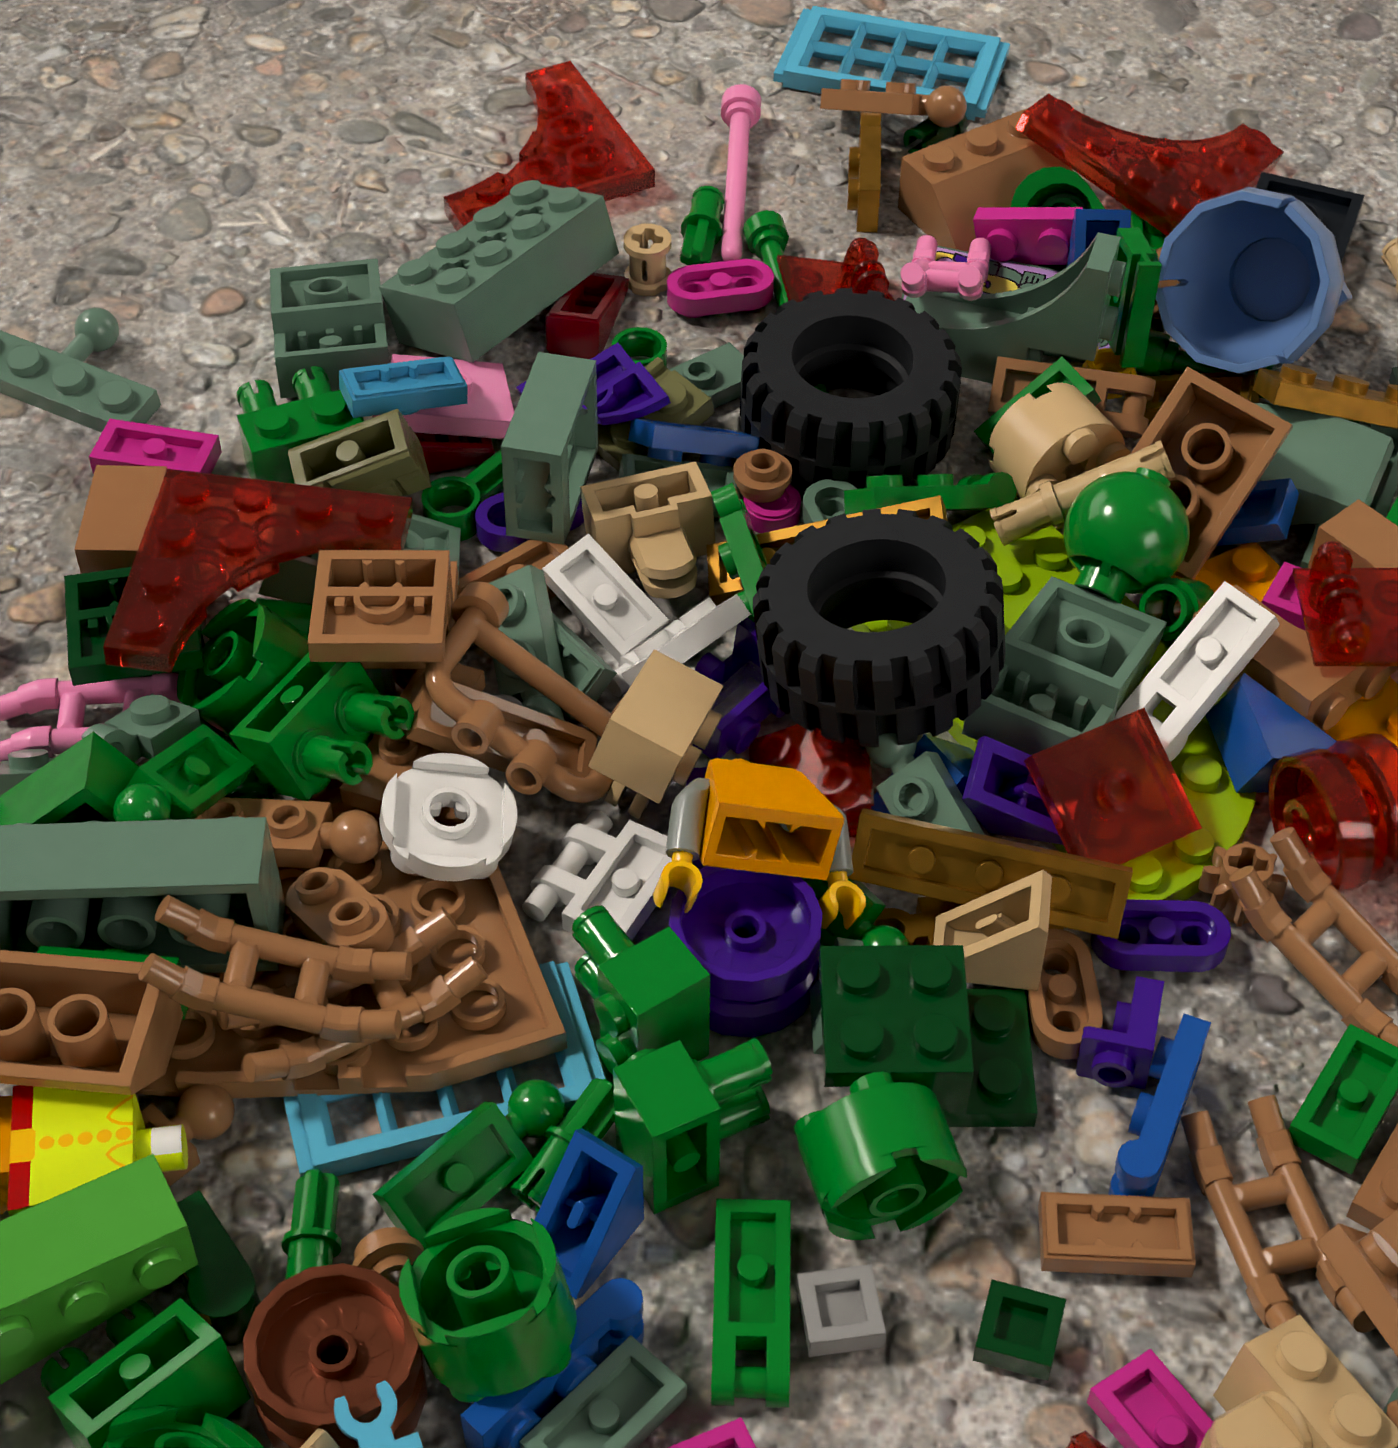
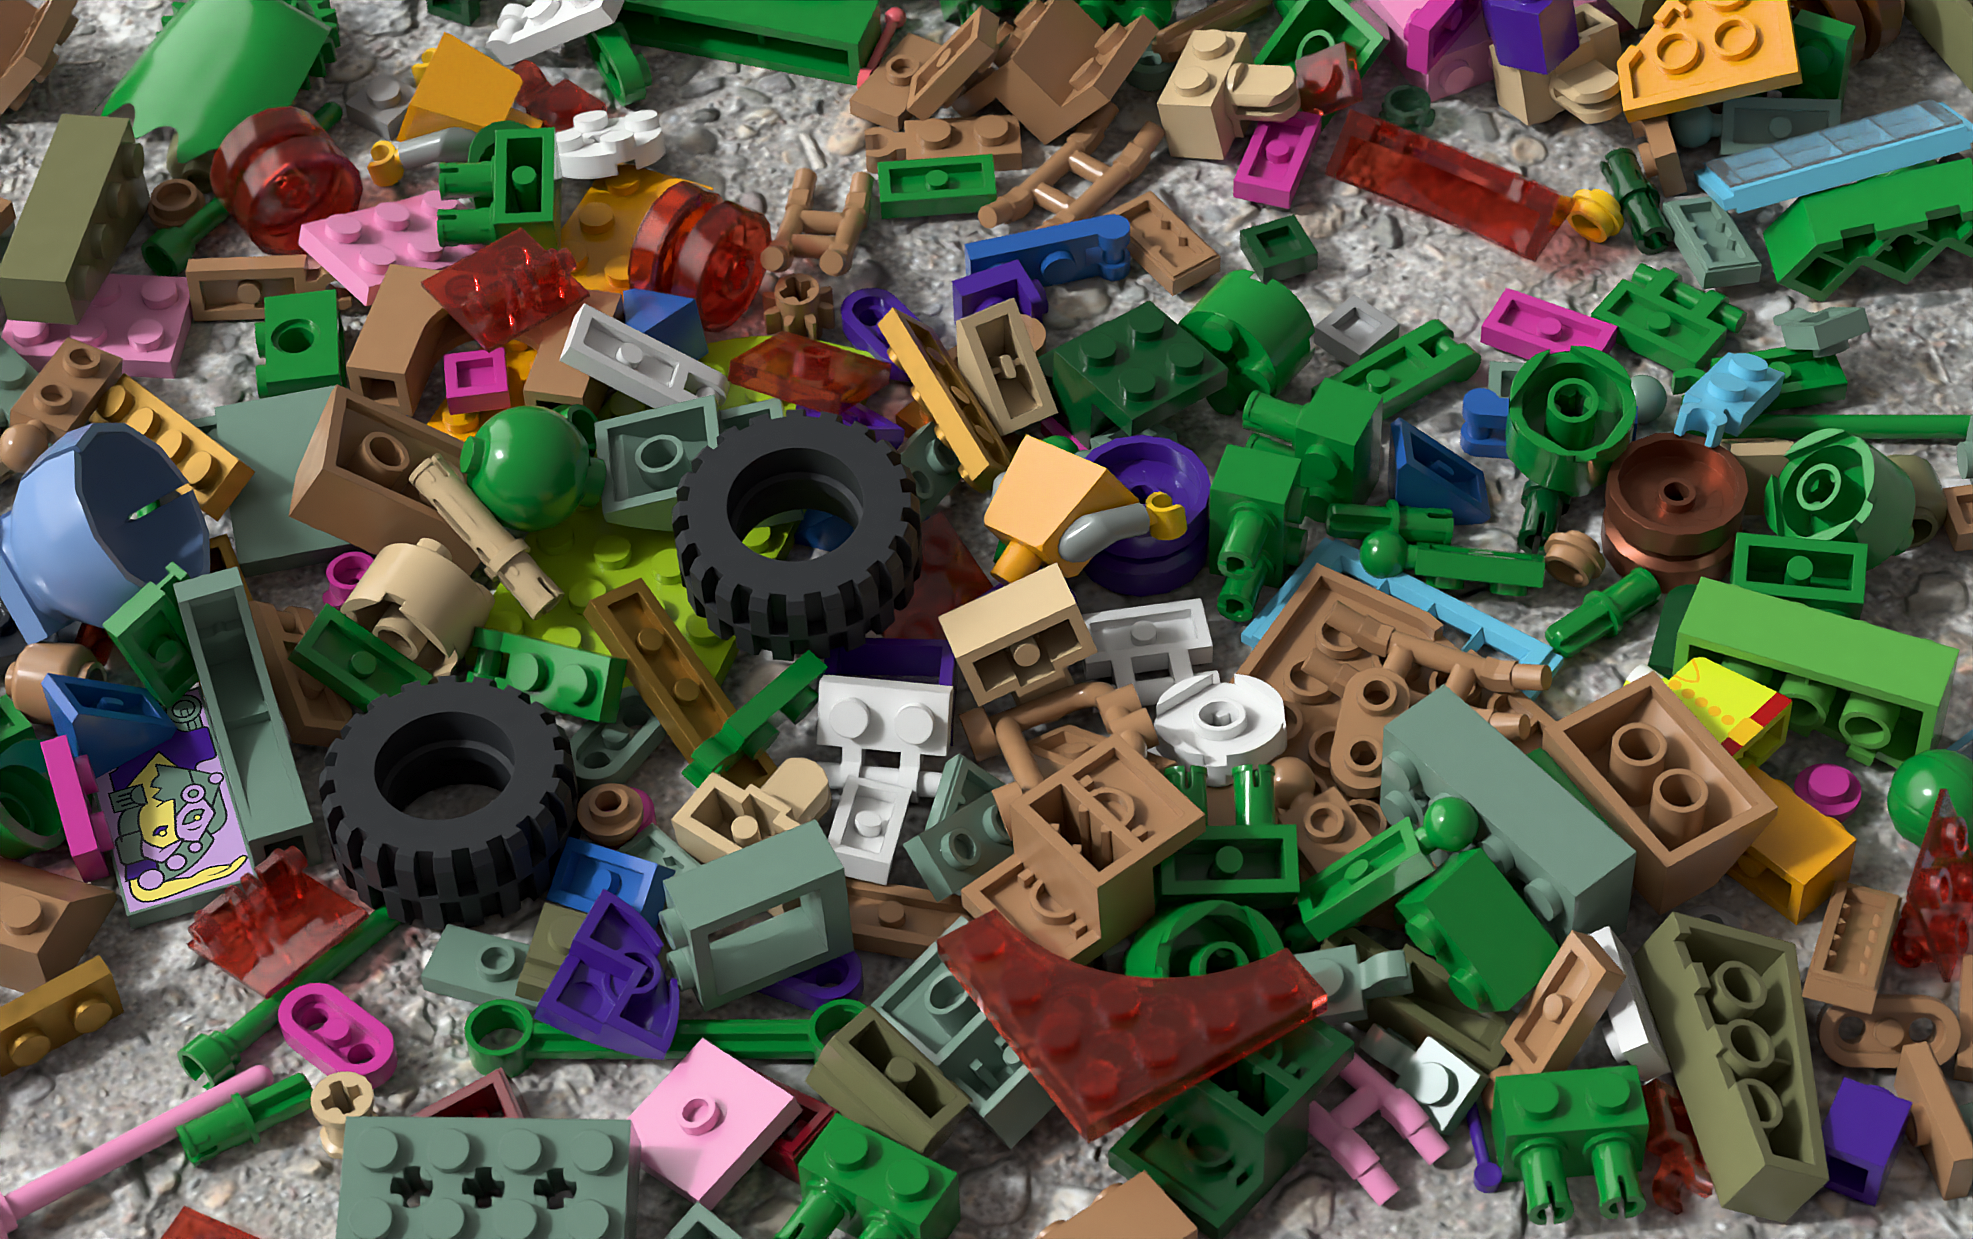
camera: 125 degrees left, 0 degrees up
(250, 944) = (1470, 660): medium nougat piece -> none
(402, 386) = (775, 1093): dark azure plate -> none
(946, 276) = (190, 808): bright pink piece -> none

